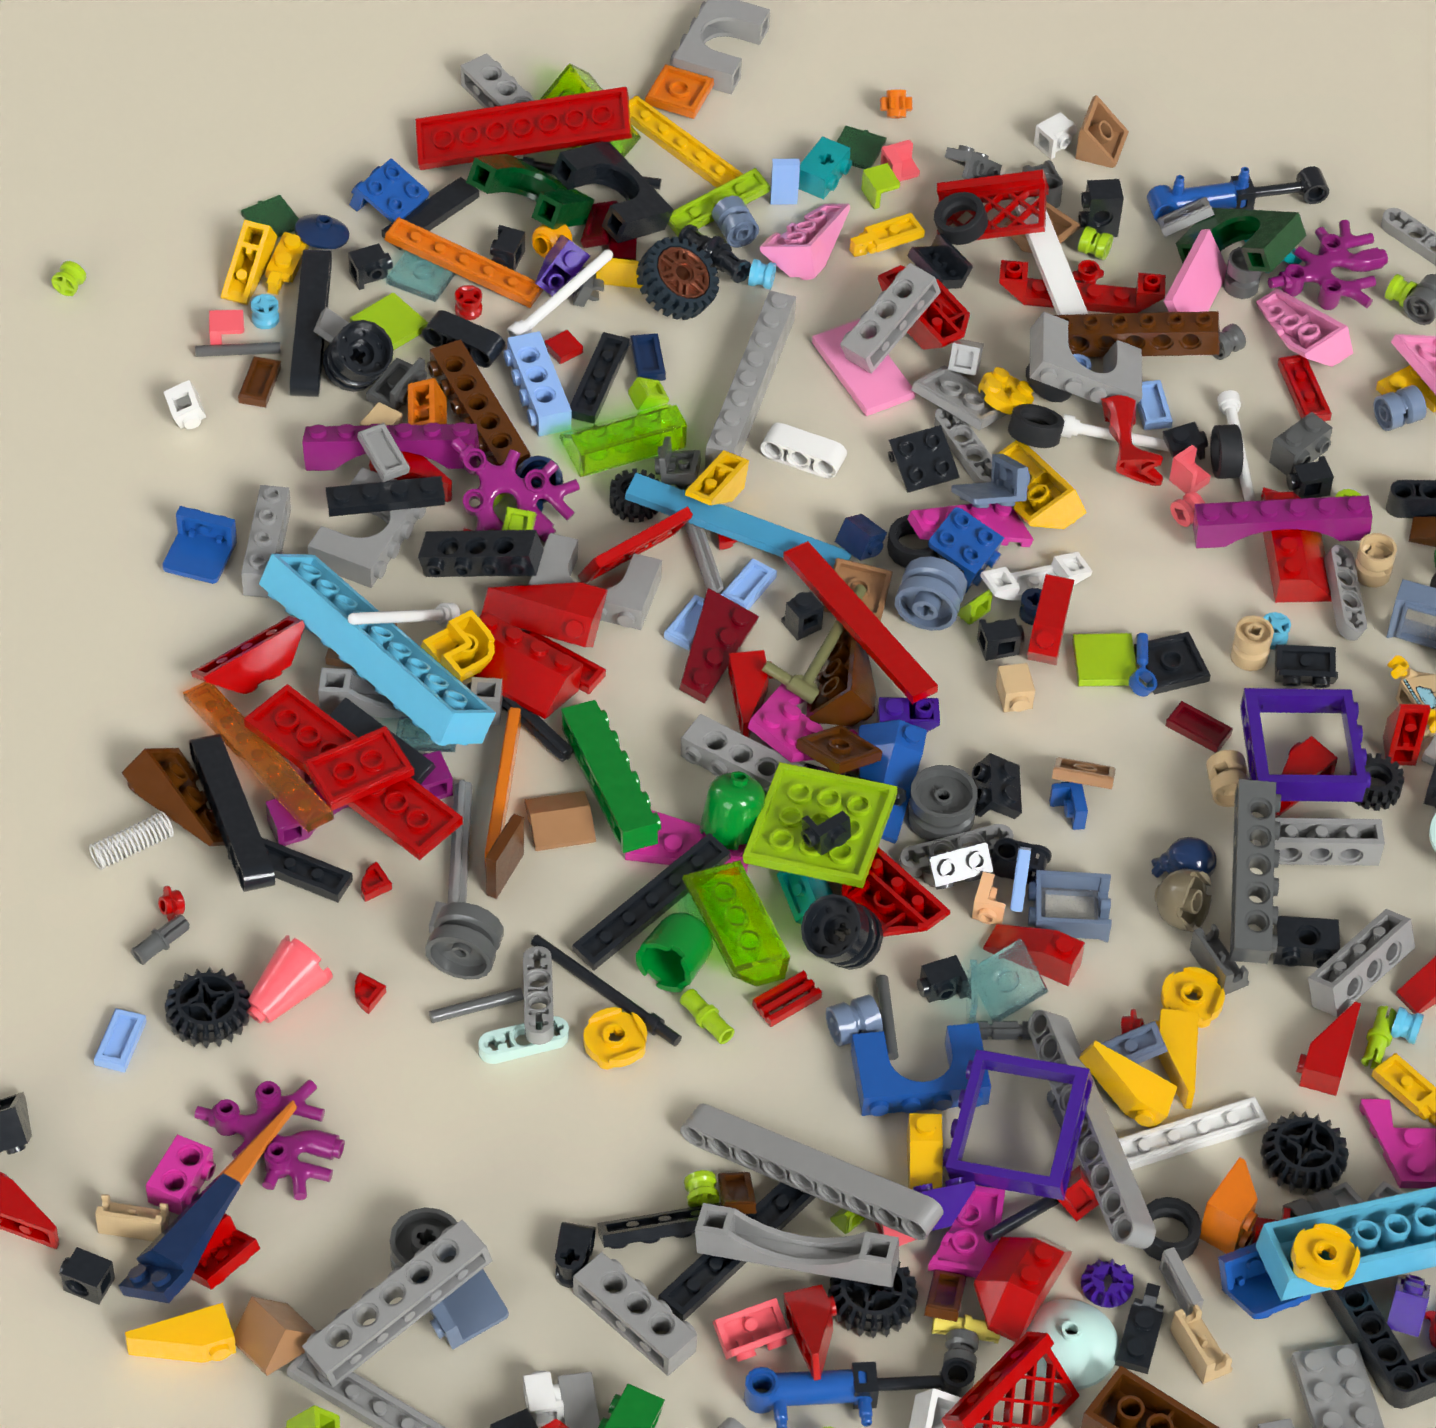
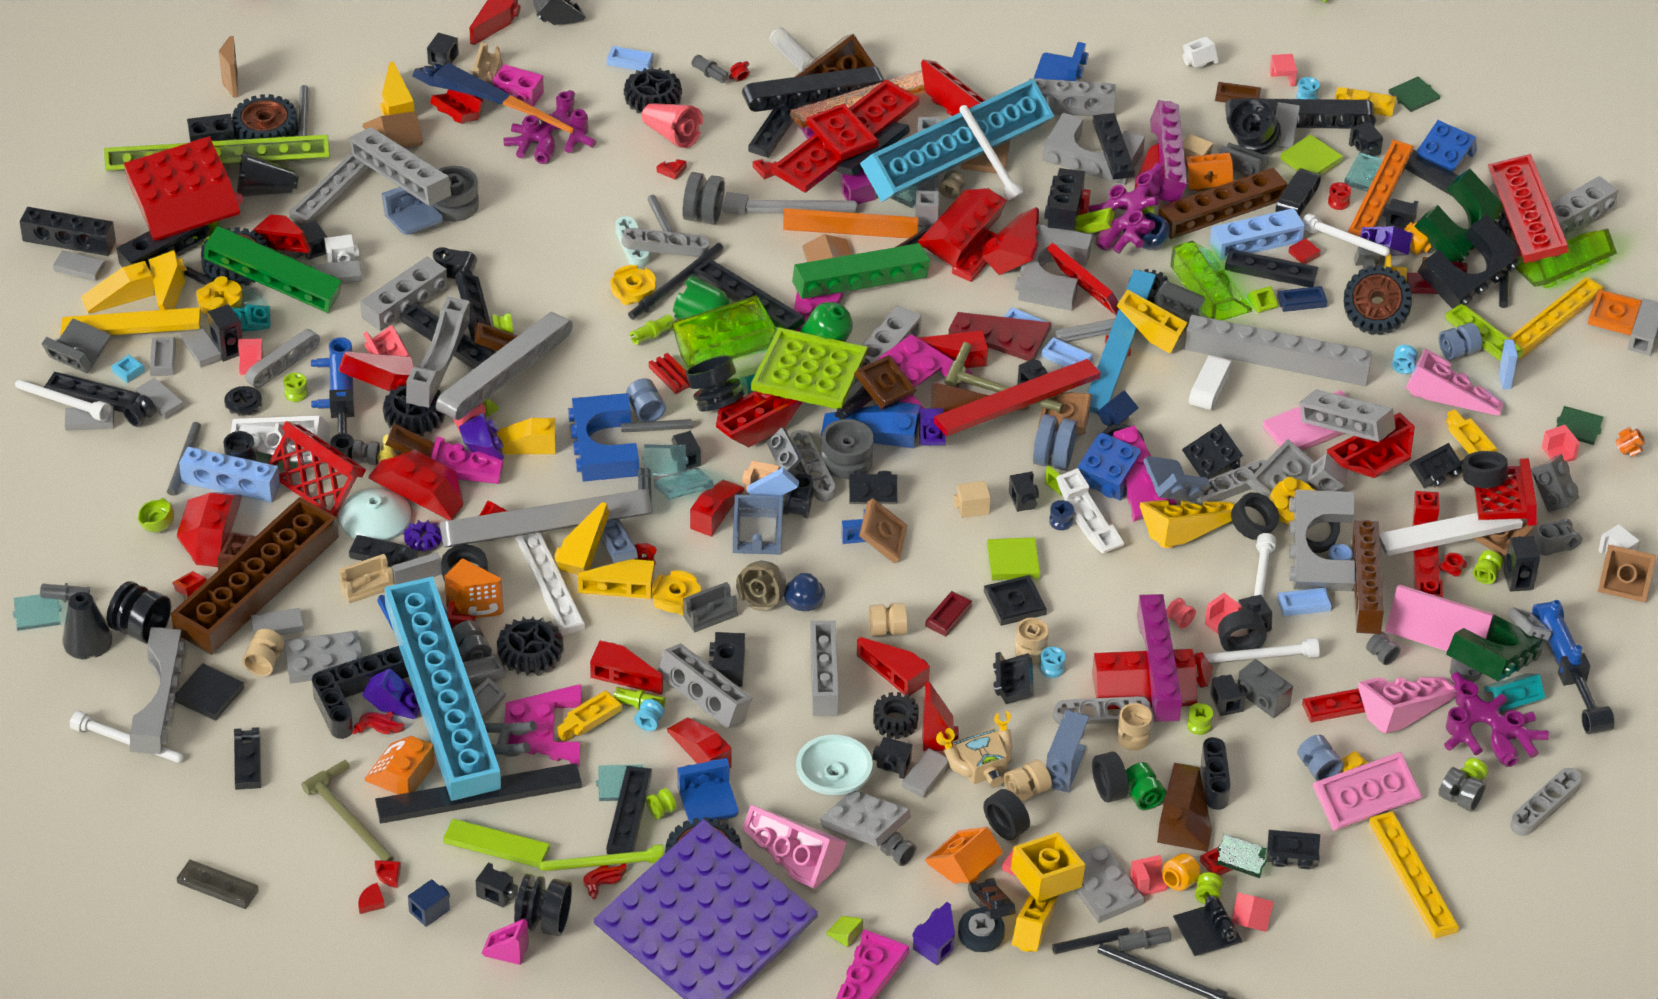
camera: 90 degrees right, 5 degrees down
(238, 349) = (1268, 78): dark grey bar -> none
(249, 261) = (1366, 76): yellow slope -> none
(322, 231) = (1402, 117): dark blue dish -> none
(383, 452) = (1147, 134): light grey tile -> none
(463, 646) = (959, 180): yellow brick -> none
(504, 855) = (780, 217): reddish brown tile -> none
(719, 252) = (1421, 328): black piece -> none
(824, 167) = (1540, 396): teal brick -> none
(828, 834) = (788, 358): black bracket -> none
(877, 181) = (1527, 426): lime panel -> none
(1012, 1180) = (539, 489): dark purple window -> none
(1019, 1218) = (471, 481): black piece -> none
(1050, 619) = (1031, 511): red slope -> none
(1131, 460) = (1263, 569): red animal -> none
(1146, 675) = (1007, 574): blue piece -> none
(1245, 943) = (777, 608): dark grey brick -> none
(1306, 787) = (911, 622): dark purple window -> none
(1323, 1272) = (399, 614): yellow plate -> none

